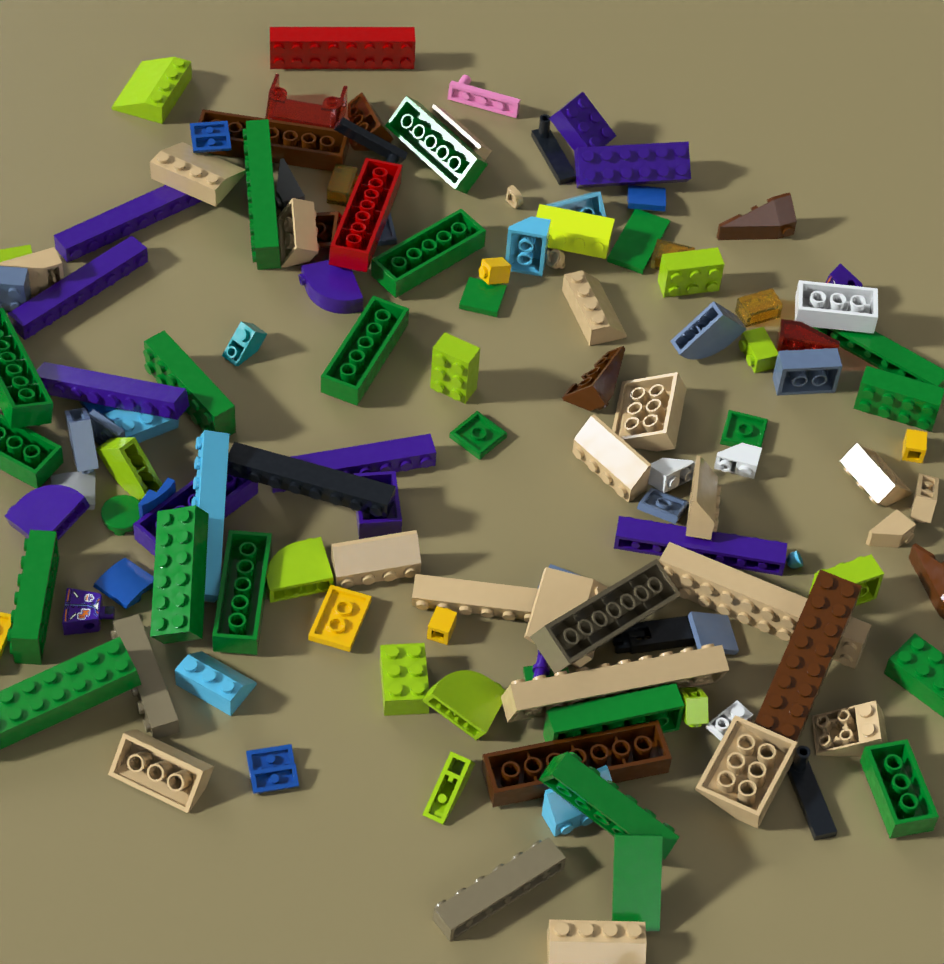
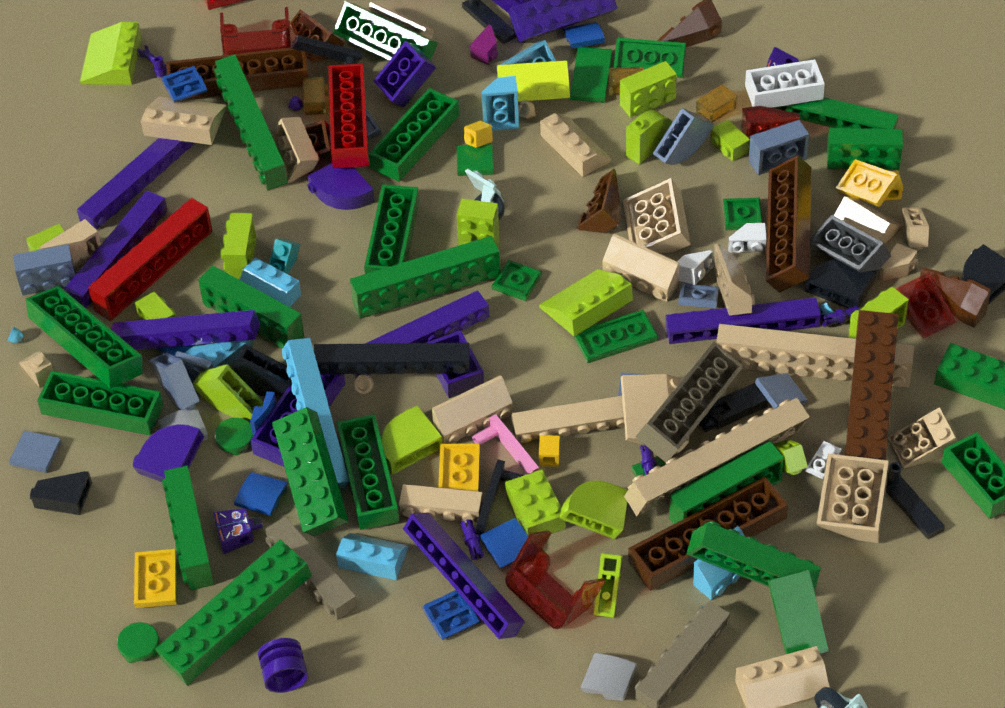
camera: 10 degrees left, 0 degrees up
(74, 770) = (282, 665): none -> dark purple wheel
(92, 358) = (153, 307): none -> lime brick
(107, 307) = (150, 259): none -> red brick
(160, 770) = (355, 643): tan slope -> none
(170, 455) = (261, 372): none -> black brick
(196, 107) = (159, 66): none -> dark purple brick
(203, 318) = (238, 243): none -> lime brick
(221, 366) = (271, 281): none -> medium azure slope
(276, 498) = (363, 384): none -> tan tile
(286, 186) = (269, 110): dark grey slope -> none
(300, 732) = (463, 575): none -> dark purple brick
(306, 648) = (441, 503): none -> tan brick
(319, 188) = (295, 103): none -> dark purple hinge
(324, 696) = (472, 539): none -> dark purple pin
(360, 711) = (504, 542): none -> blue slope
(376, 772) = (541, 592): none -> clear red windscreen
(378, 635) = (499, 474): none -> black piece
(381, 404) = (425, 277): none -> green brick
(397, 587) = (499, 430): none -> bright pink piece
(412, 887) = (609, 676): none -> light grey slope
(440, 187) = (404, 74): none -> dark purple brick
(481, 337) = (488, 189): none -> light aqua plate
(514, 197) = (469, 65): tan tile -> none
(537, 181) = (484, 46): none -> magenta slope
(544, 478) = (588, 300): none -> lime slope
(559, 523) = (616, 336): none -> green tile
(668, 318) = (645, 135): none -> lime brick
(705, 234) = (649, 53): none -> green tile
(786, 456) = (788, 224): none -> reddish brown brick
(806, 570) = (839, 316): none -> dark purple pin
(822, 534) = (840, 283): none -> black brick
(844, 498) = (850, 245): none -> dark grey slope
(888, 436) = (867, 183): none -> yellow plate
(904, 586) = (926, 306): none -> clear red slope

